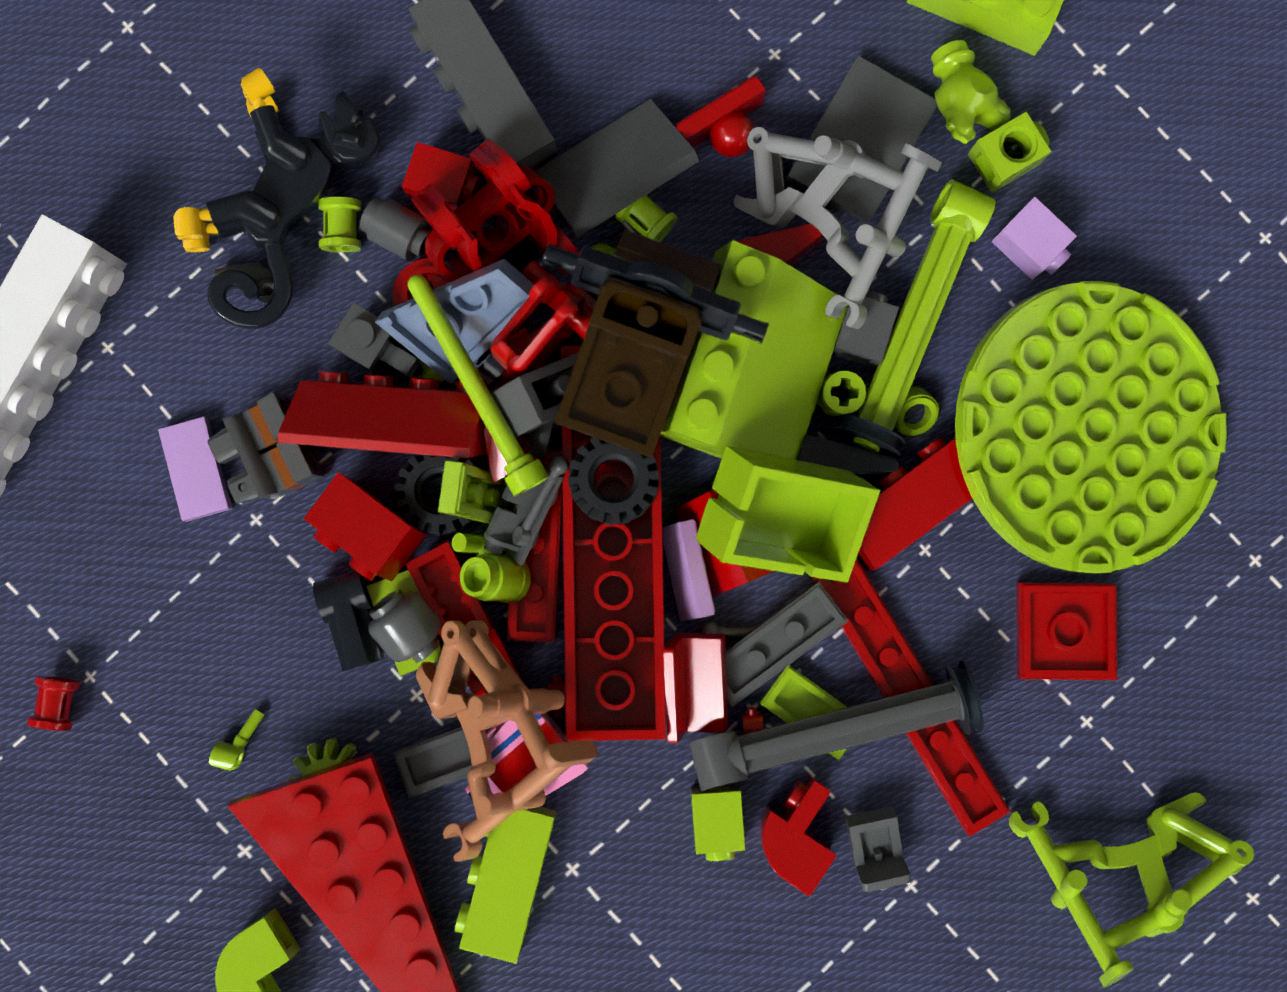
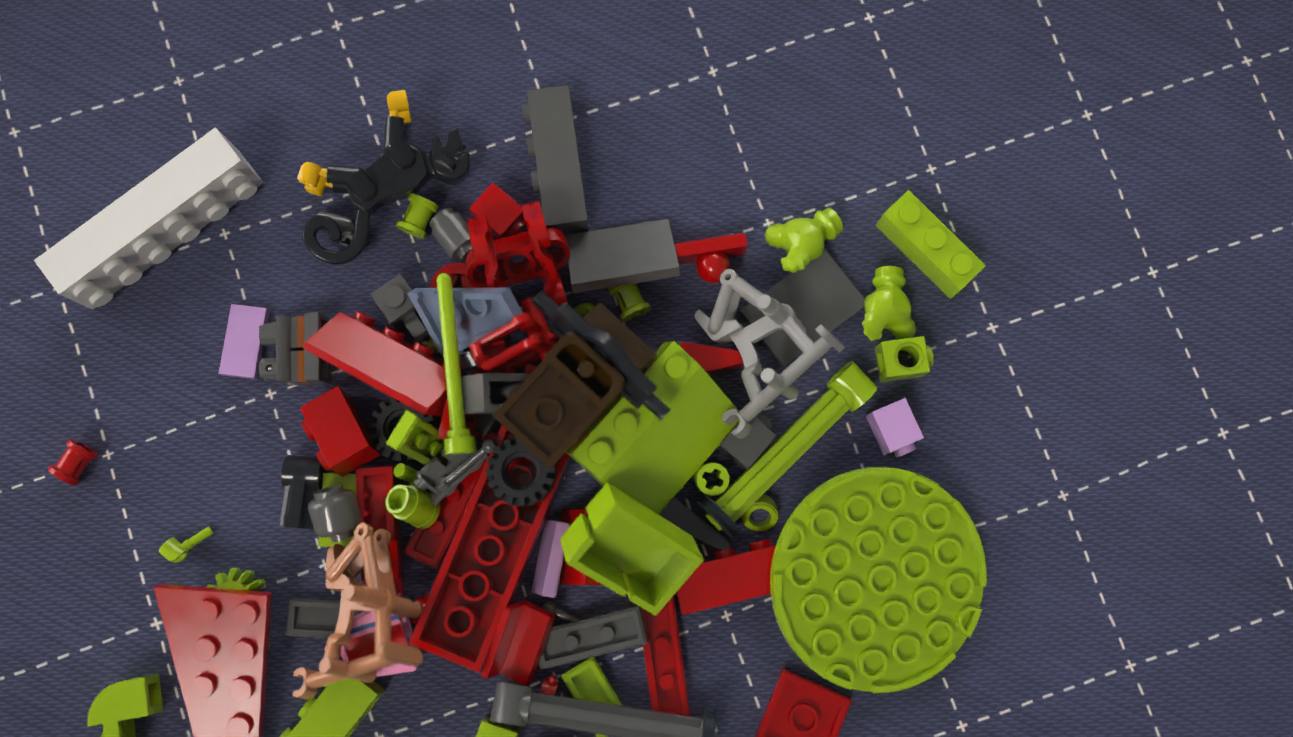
camera: 20 degrees right, 5 degrees down
(828, 52) = (804, 238): none -> lime animal

